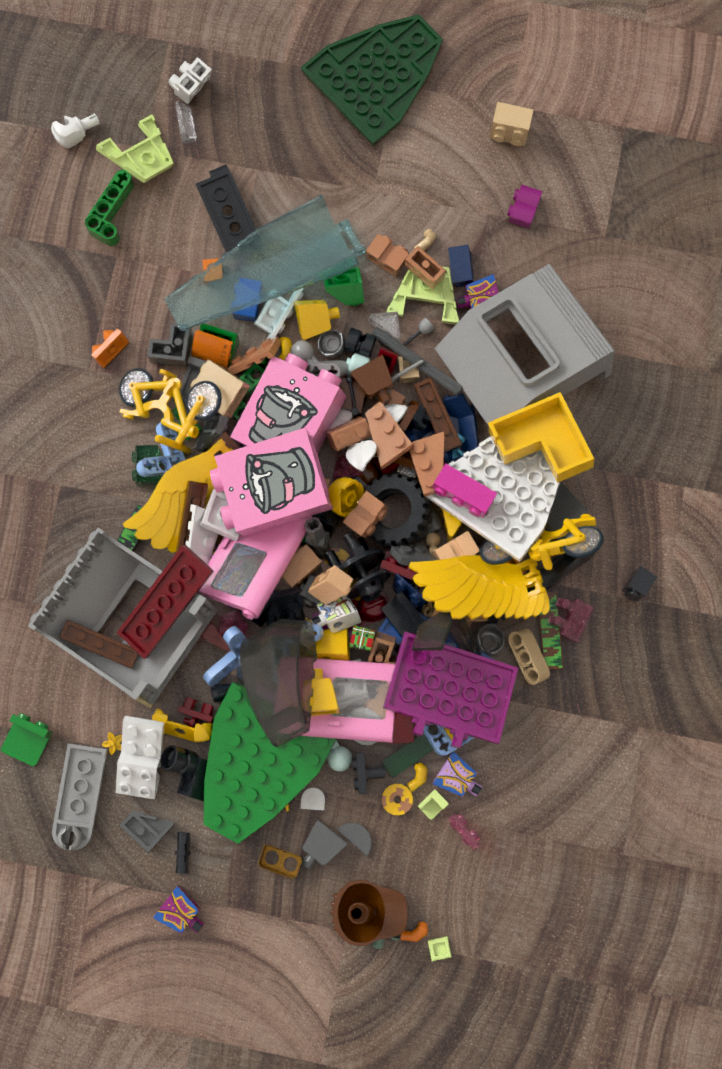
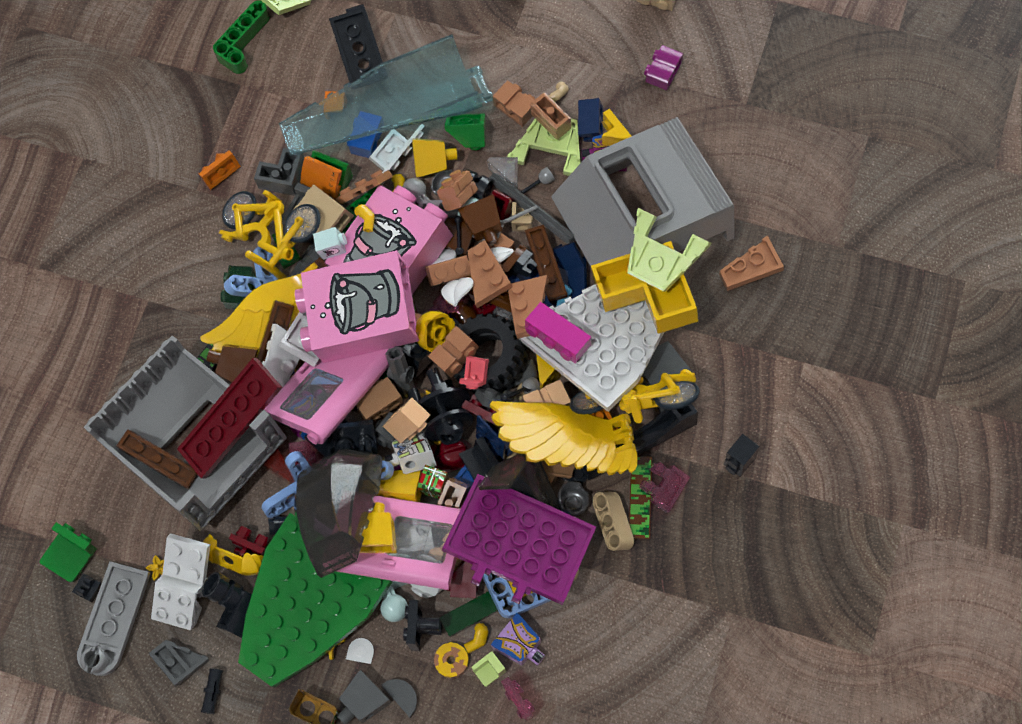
camera: 15 degrees right, 10 degrees down
(50, 769) = (87, 588): none -> black tile
(159, 544) = (231, 360): none -> reddish brown torso
(234, 418) = (330, 243): none -> light aqua brick
(265, 387) = (367, 215): none -> yellow arm
(346, 353) = (457, 190): none -> nougat brick
(389, 534) = (475, 372): none -> coral bracket
(437, 537) = (527, 385): none -> hinge
(492, 282) = (615, 130): none -> yellow slope
(552, 416) = (656, 262): none -> yellowish green wing
(630, 397) = (754, 265): none -> nougat wing

